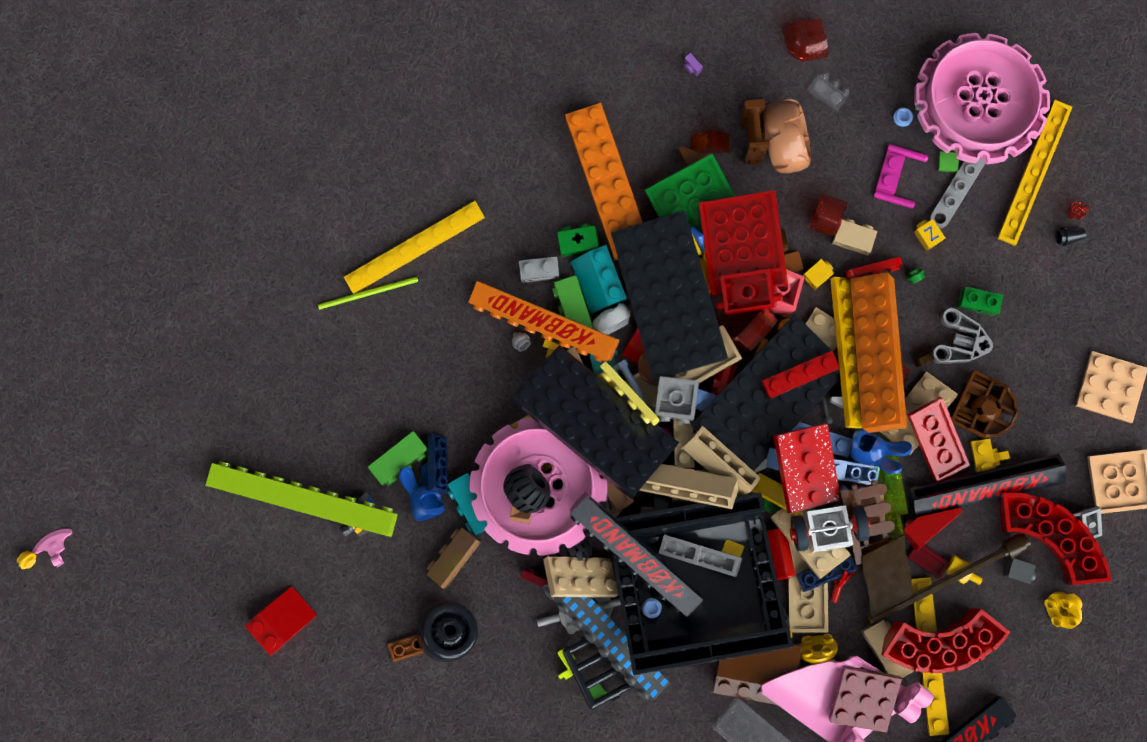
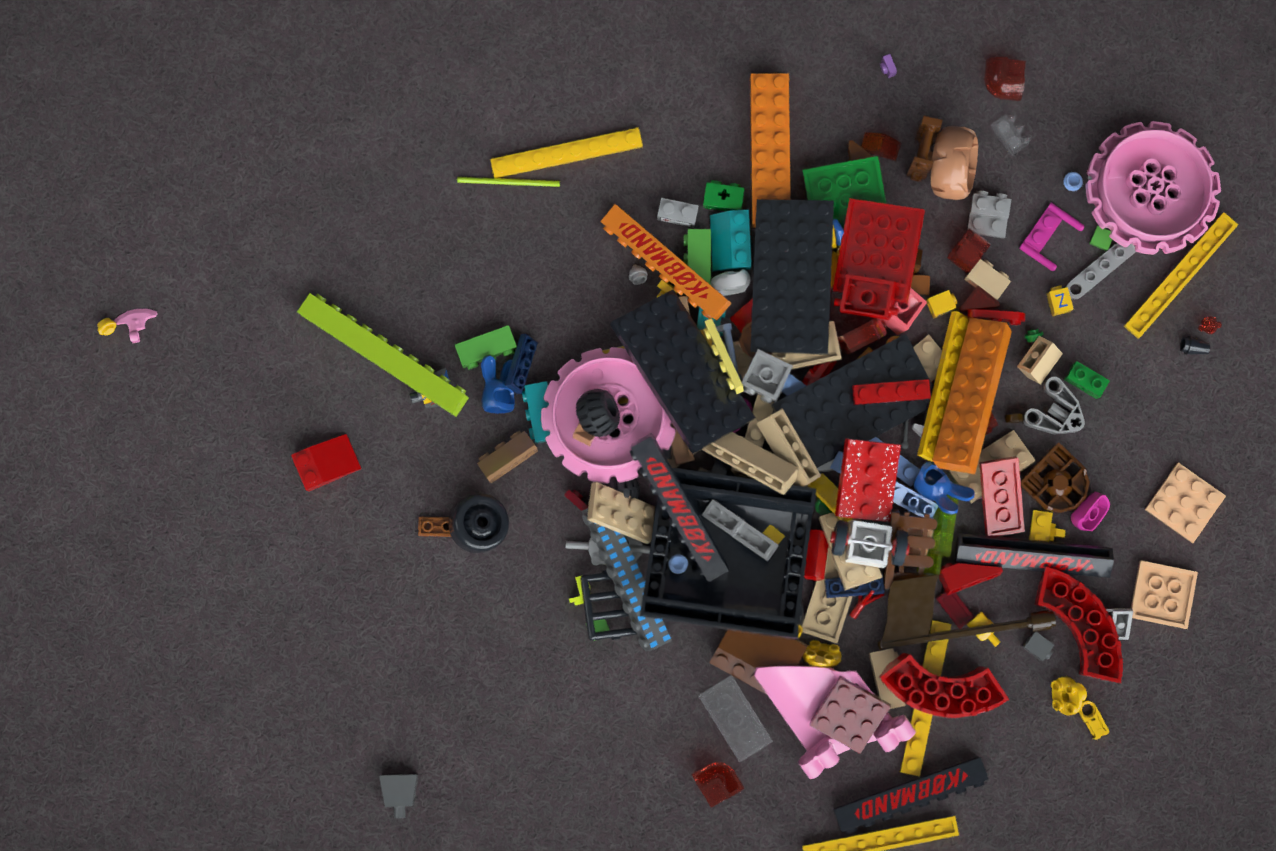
camera: 15 degrees right, 0 degrees up
(834, 174) = (989, 214): none -> light grey plate
(852, 259) = (979, 300): none -> clear red slope
(929, 297) = (1039, 360): none -> tan brick
(1026, 426) = (1090, 512): none -> dark pink piece
(1097, 625) = (1094, 721): none -> yellow piece

